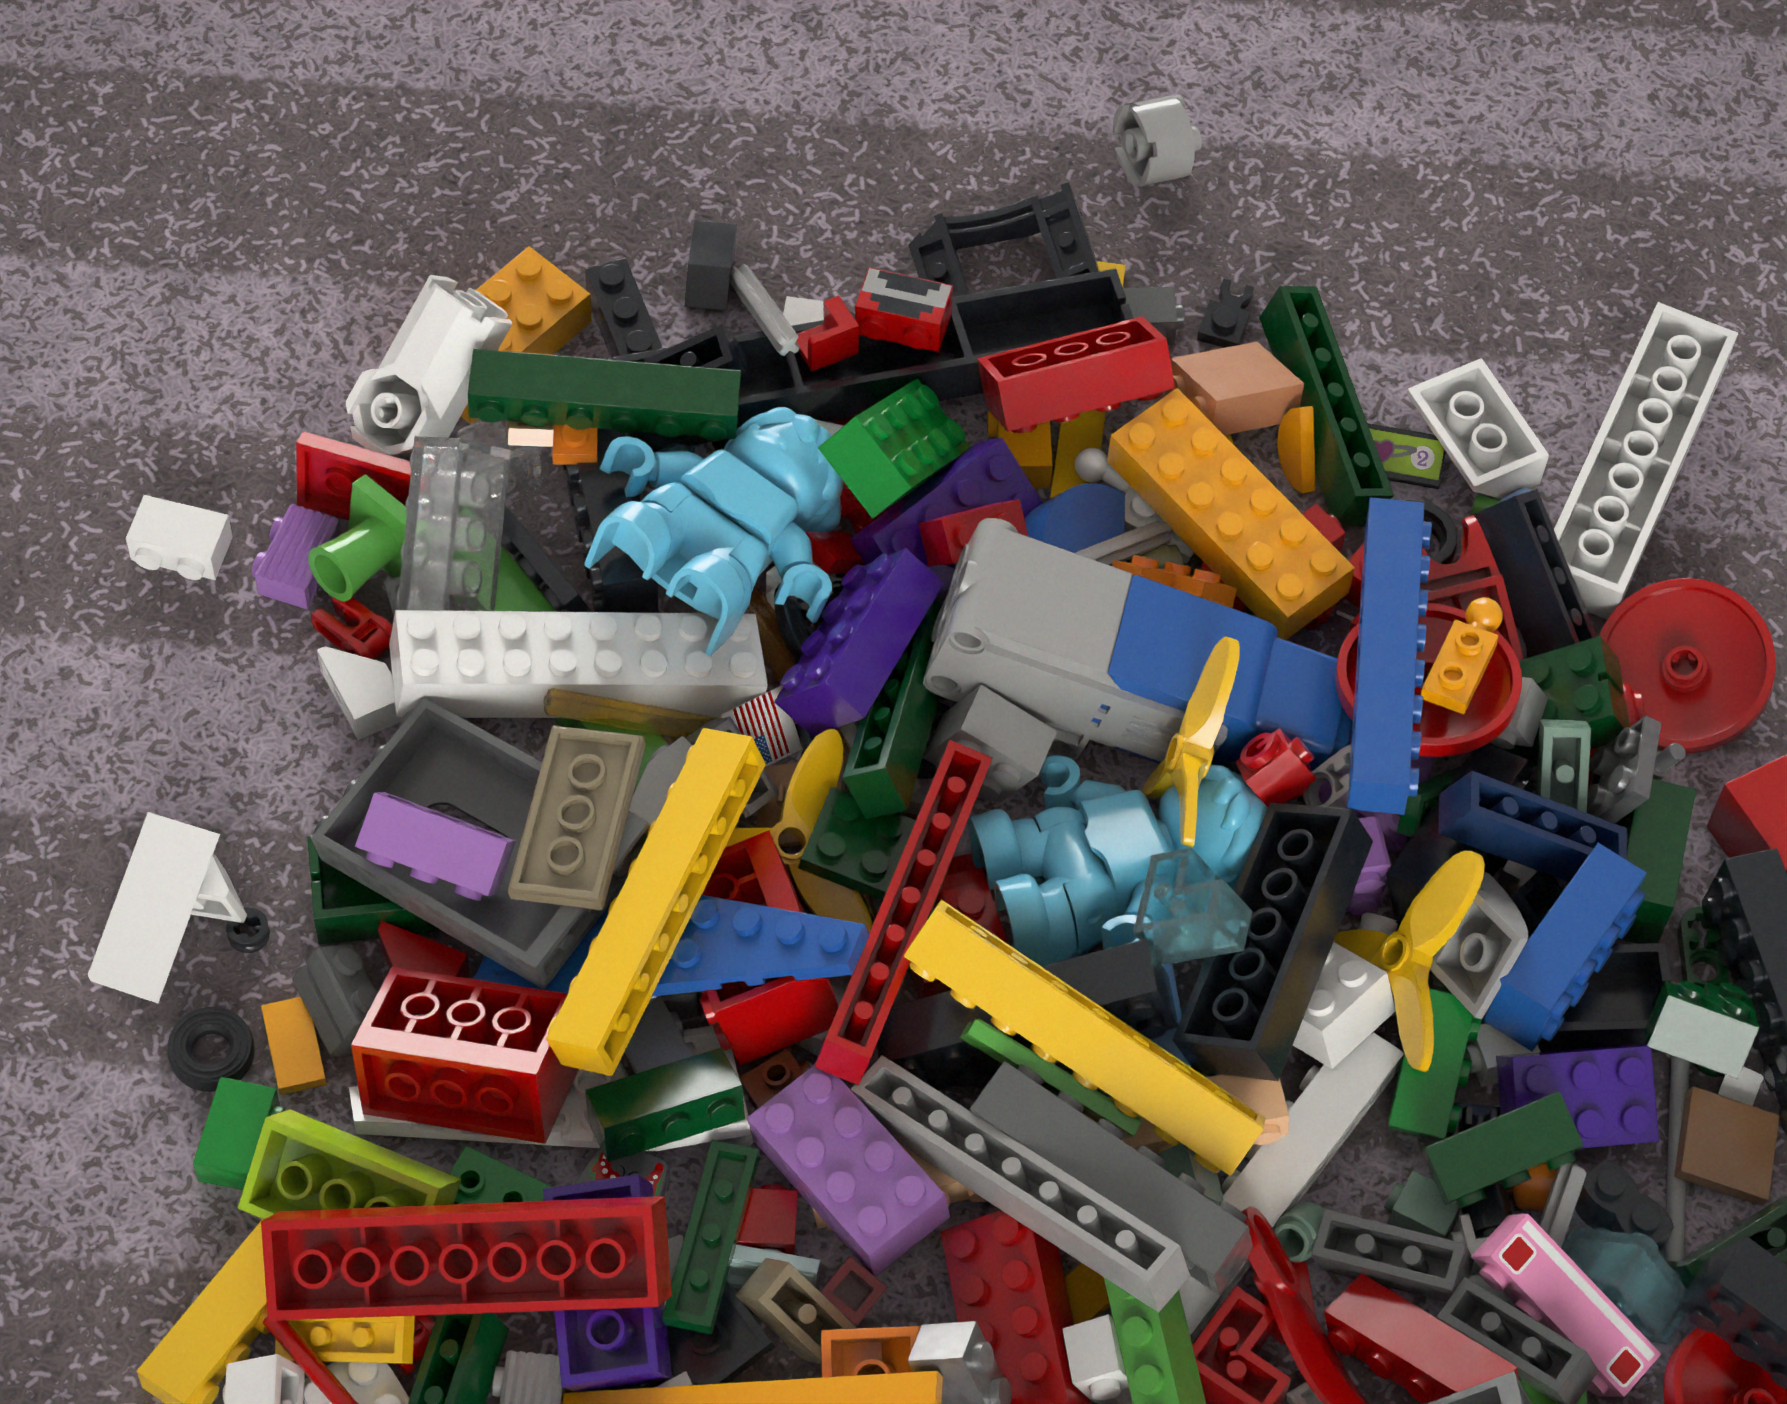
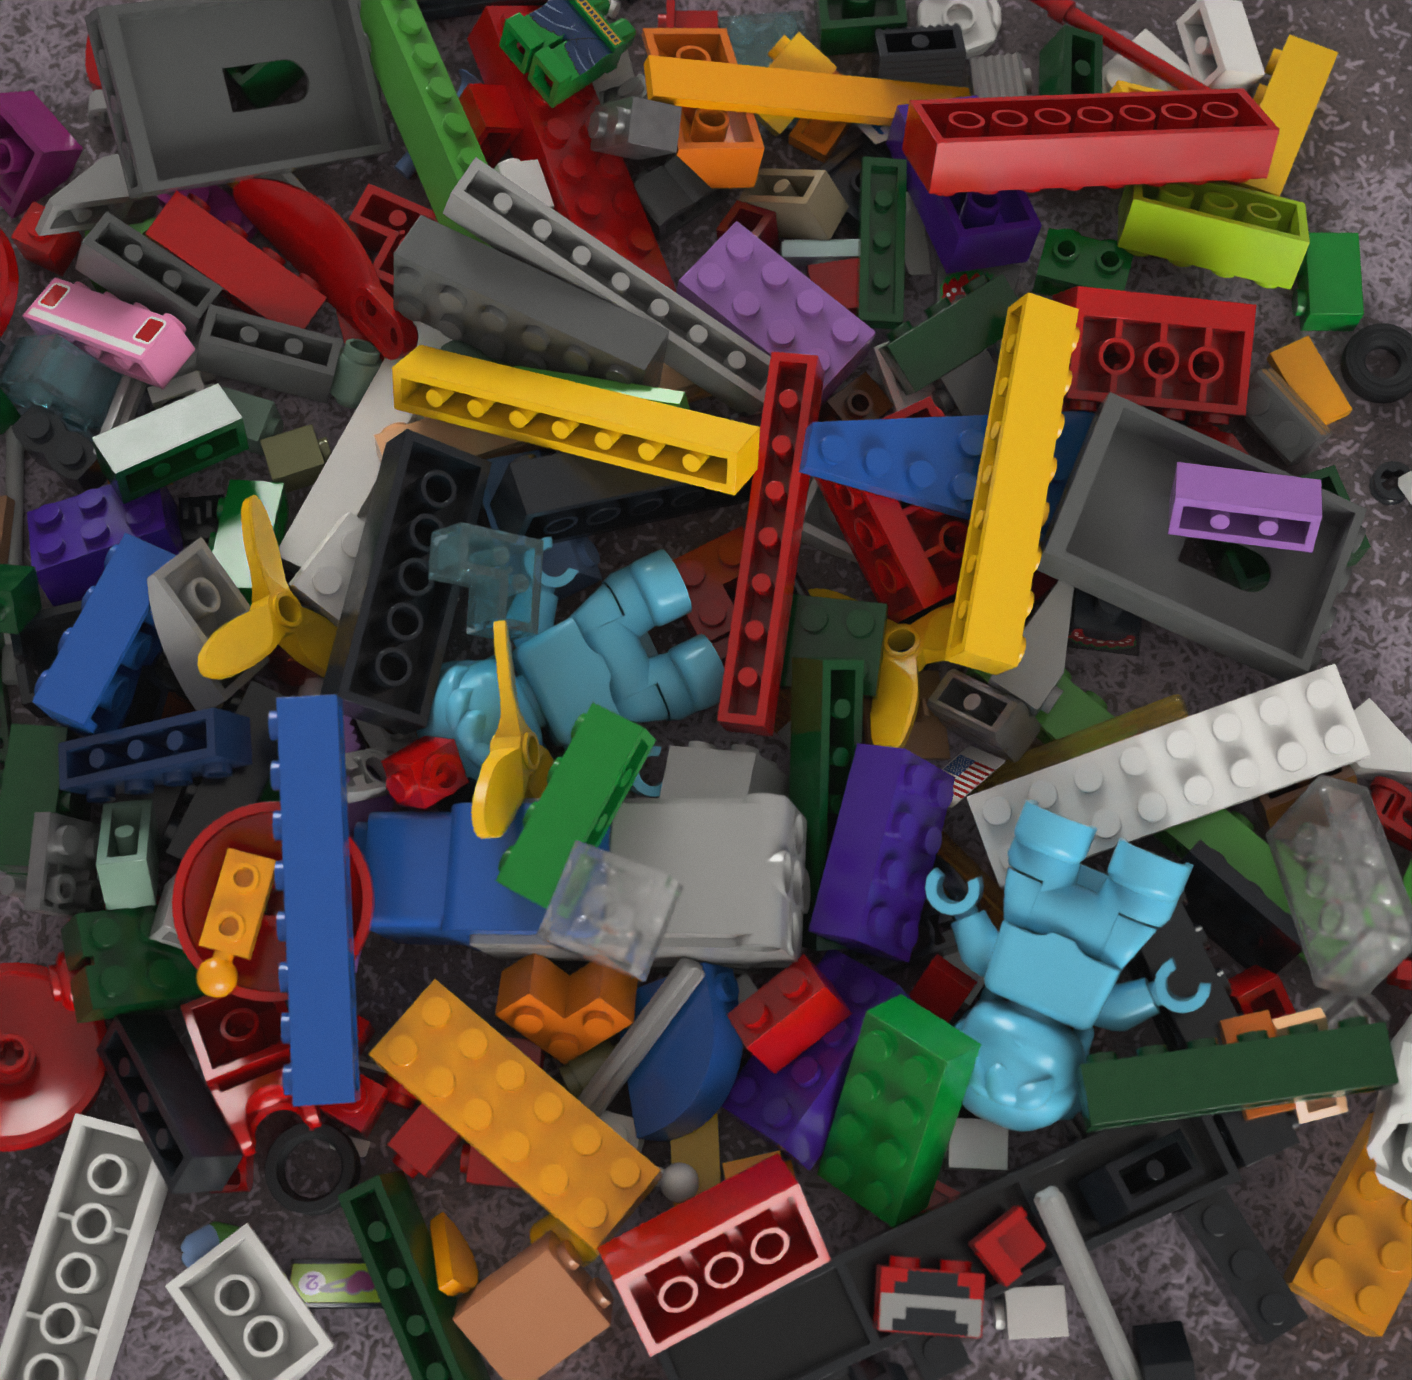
camera: 175 degrees right, 15 degrees up
(547, 502) = (1260, 991): none -> red brick
(577, 817) = (1115, 545): dark tan tile -> none
(1126, 561) = (610, 910): none -> clear brick
(1141, 662) = (577, 803): none -> green brick
(1372, 1160) = (296, 457): none -> olive brick

